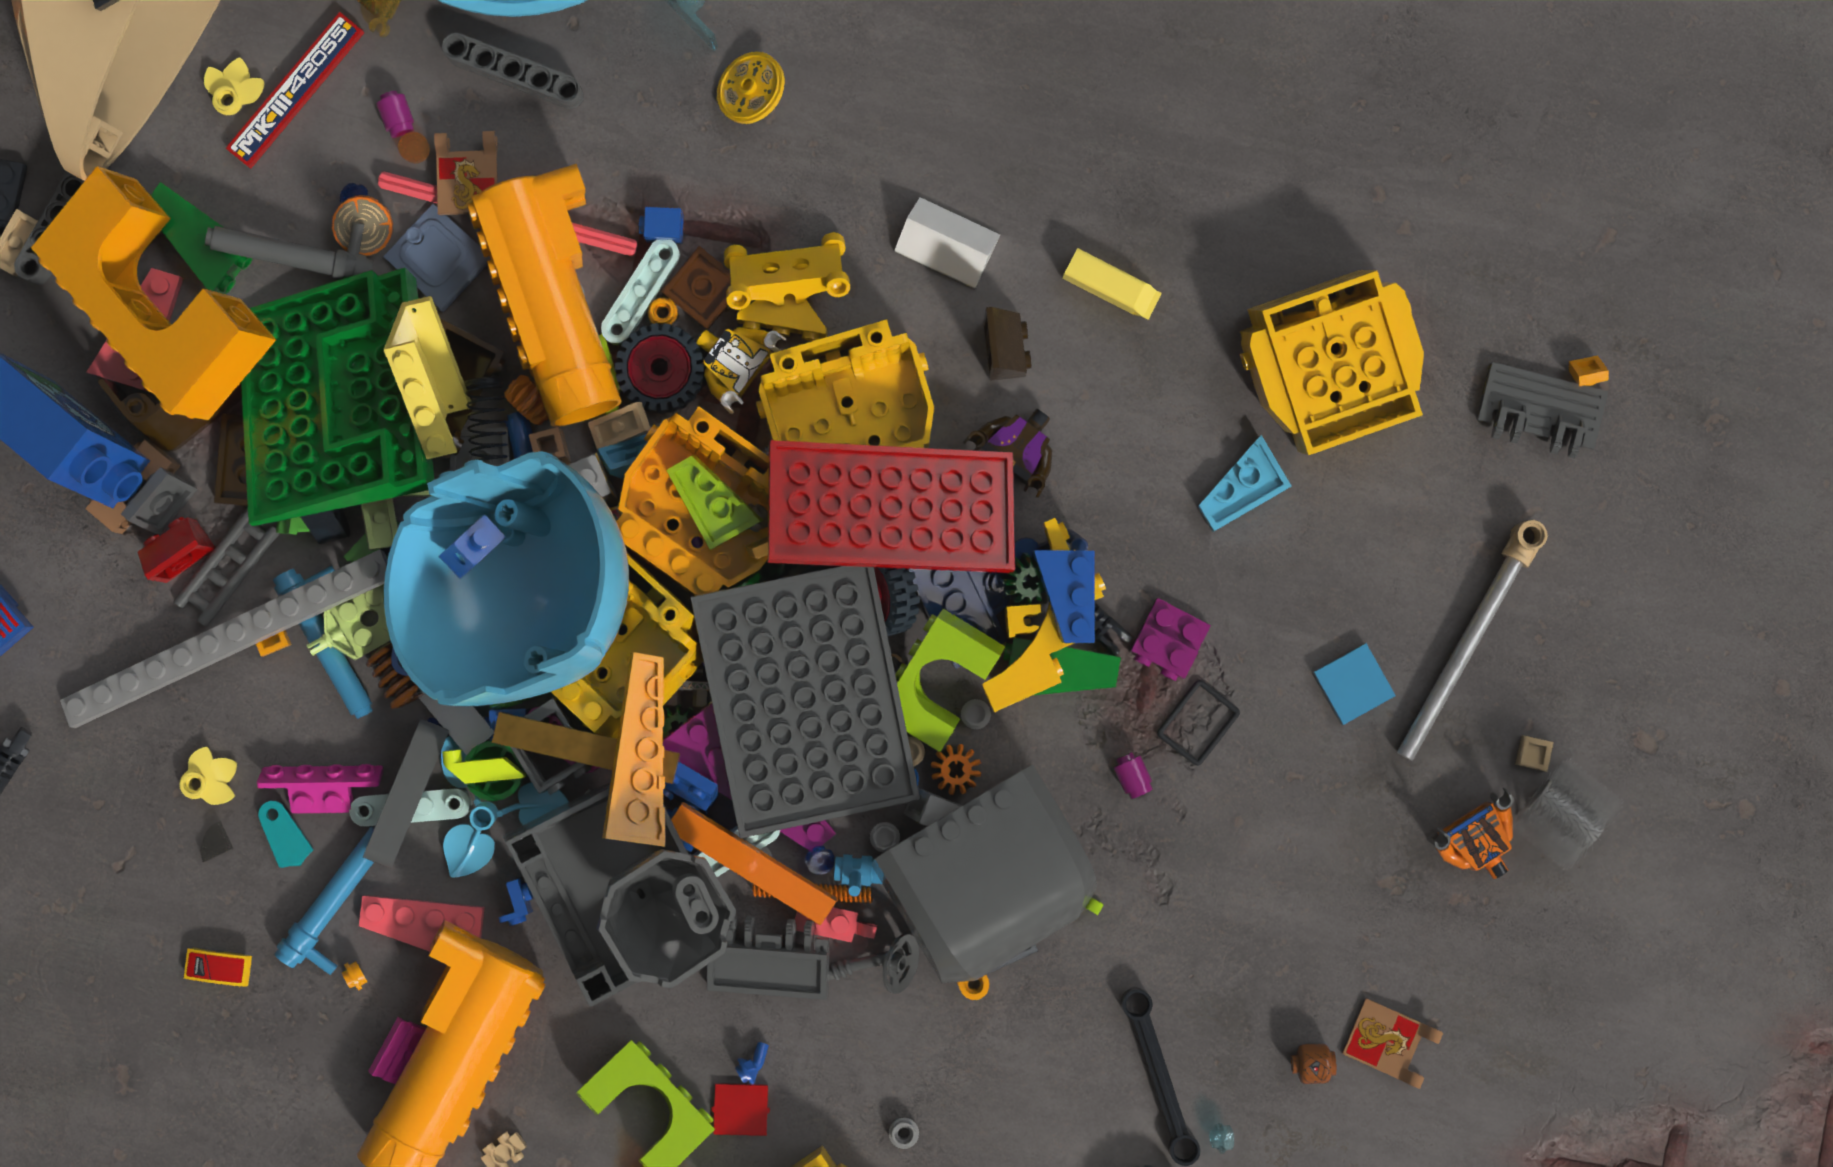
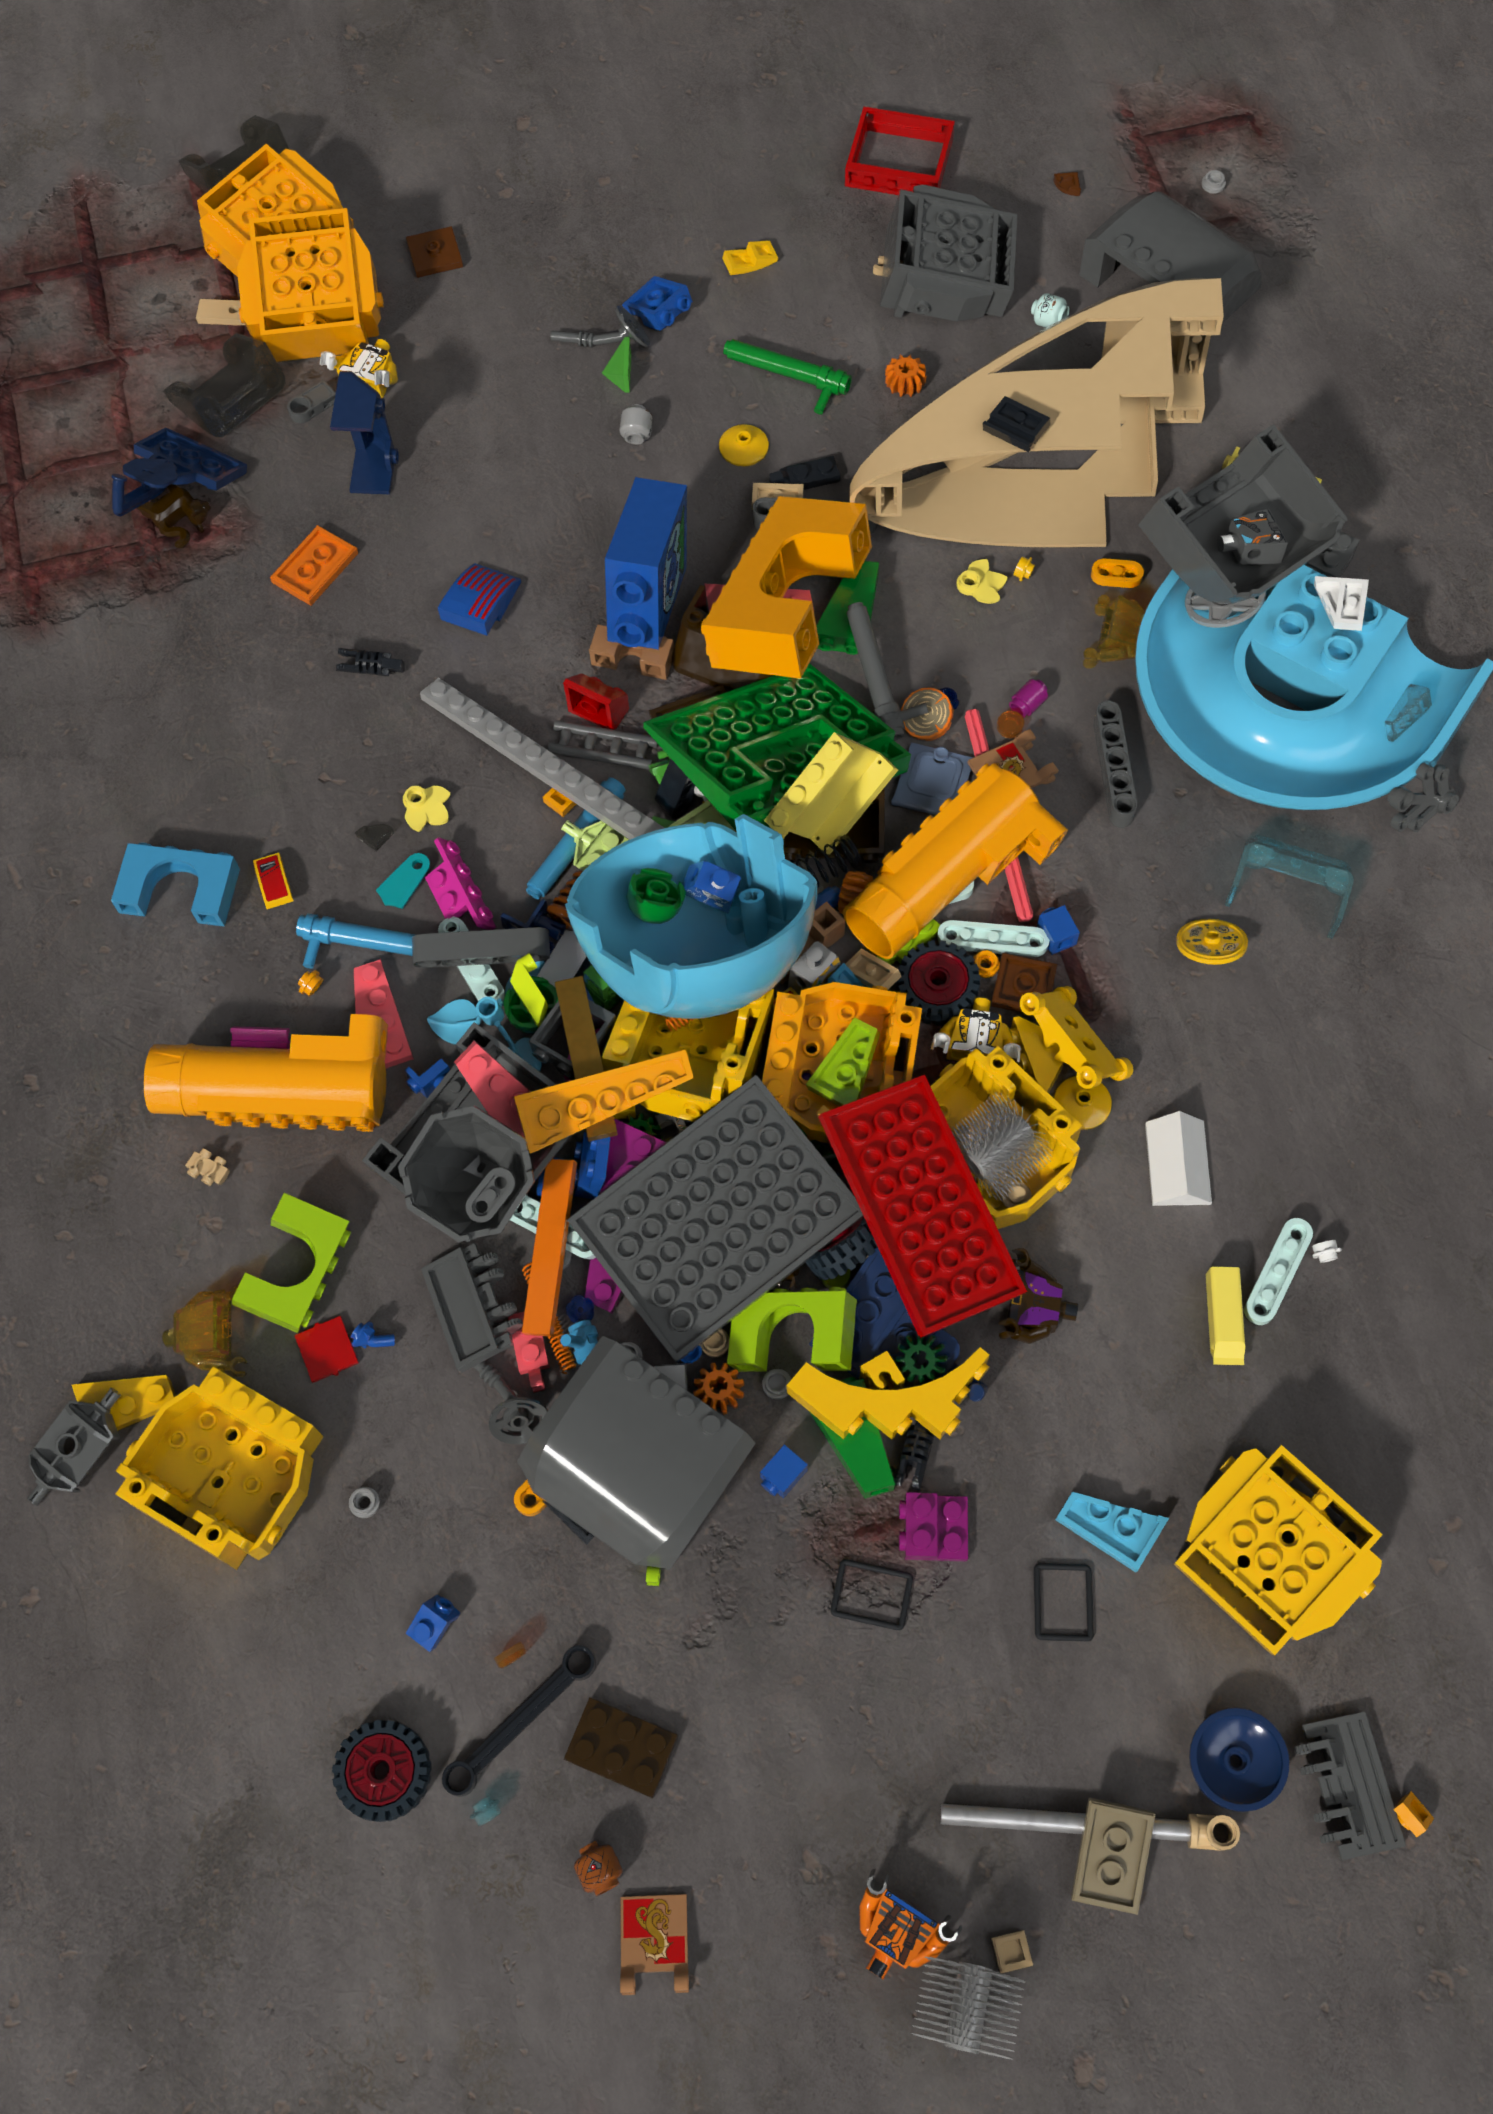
camera: 70 degrees right, 20 degrees down
(136, 1090) = (147, 865): none -> dark azure arch
(158, 501) = (630, 669): dark grey plate -> none
(239, 35) = (1024, 568): none -> yellow plate
(295, 90) = (1005, 624): tile -> none
(401, 722) = (537, 919): none -> dark blue bracket
(458, 605) = (654, 896): none -> green cylinder
(580, 849) = (492, 1085): none -> coral wing
(852, 311) = (1090, 1113): none -> yellow dish
(865, 406) = (999, 1146): none -> light grey piece
(912, 410) = (1018, 1197): none -> tan plate
(1005, 344) = (1118, 1243): dark brown slope -> none
(1040, 1115) = (432, 1622): none -> blue bracket
(1059, 749) = (783, 1472): none -> blue brick
(1071, 591) = (930, 1397): blue wing -> none
(1093, 213) = (1278, 1271): none -> light aqua plate
(1096, 160) = (1326, 1251): none -> white plate
(1103, 1060) = (510, 1655): none -> clear orange tile
(1133, 775) = (792, 1553): magenta brick -> none
(1223, 999) = (621, 1747): none -> dark brown plate
(1321, 554) = (1089, 1602): none -> black piece
(1354, 684) = (985, 1728): dark azure tile -> none
(1503, 487) = (1261, 1756): none -> dark blue dish
(1505, 633) = (1113, 1856): none -> dark tan tile

